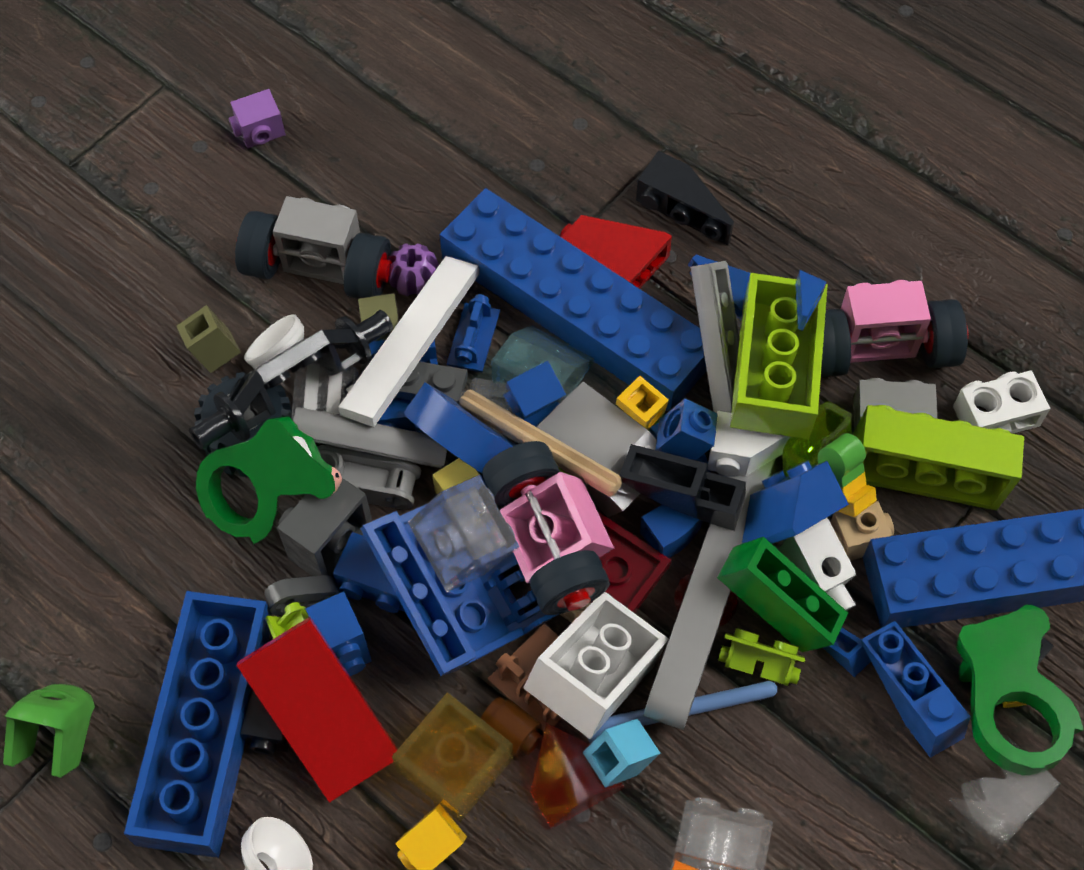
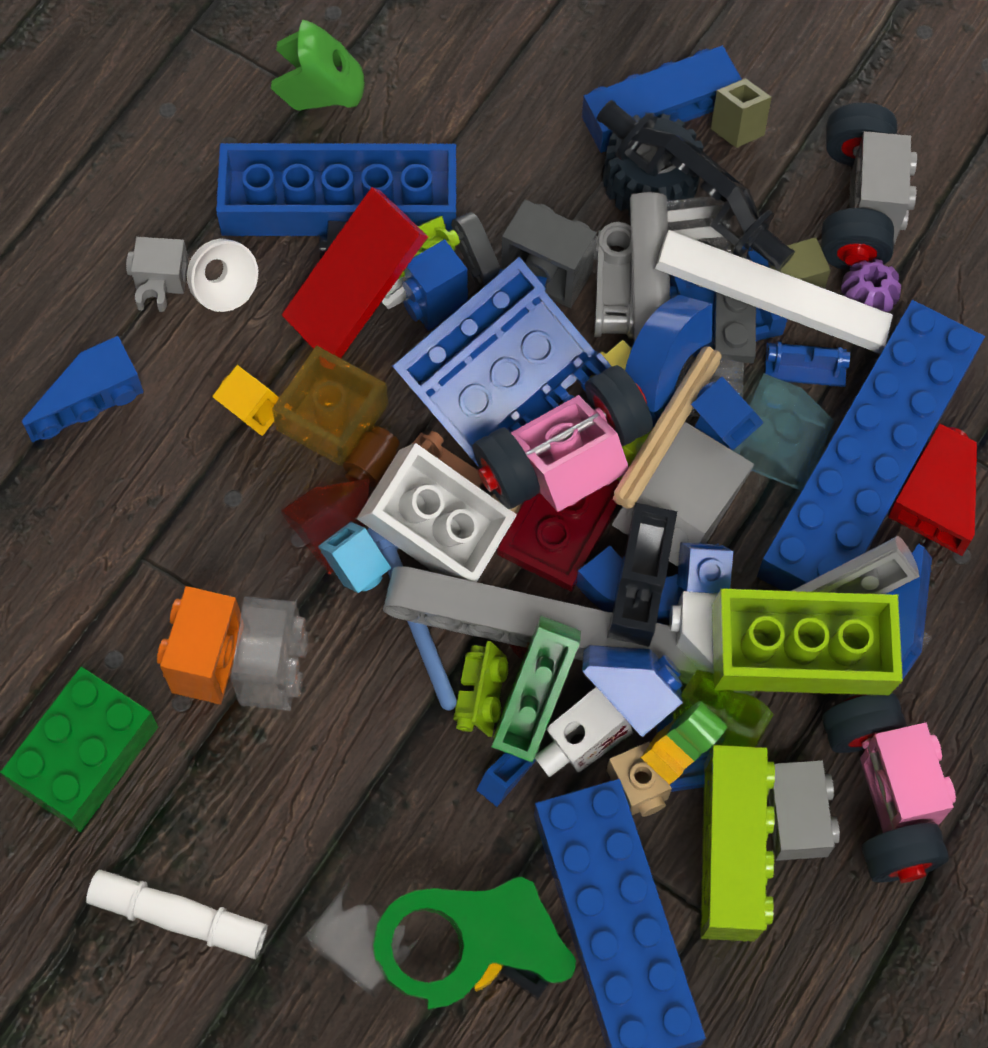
camera: 80 degrees right, 5 degrees up
(168, 407) = (675, 89): none -> blue brick
(275, 340) = (755, 175): white piece -> none
(277, 463) = (589, 188): green animal -> none
(463, 533) = (542, 361): clear brick -> none
(643, 403) = (734, 525): yellow leg -> none
(808, 294) = (868, 653): blue piece -> none
(916, 690) = (463, 840): blue slope -> none
(1001, 407) = (817, 935): white brick -> none

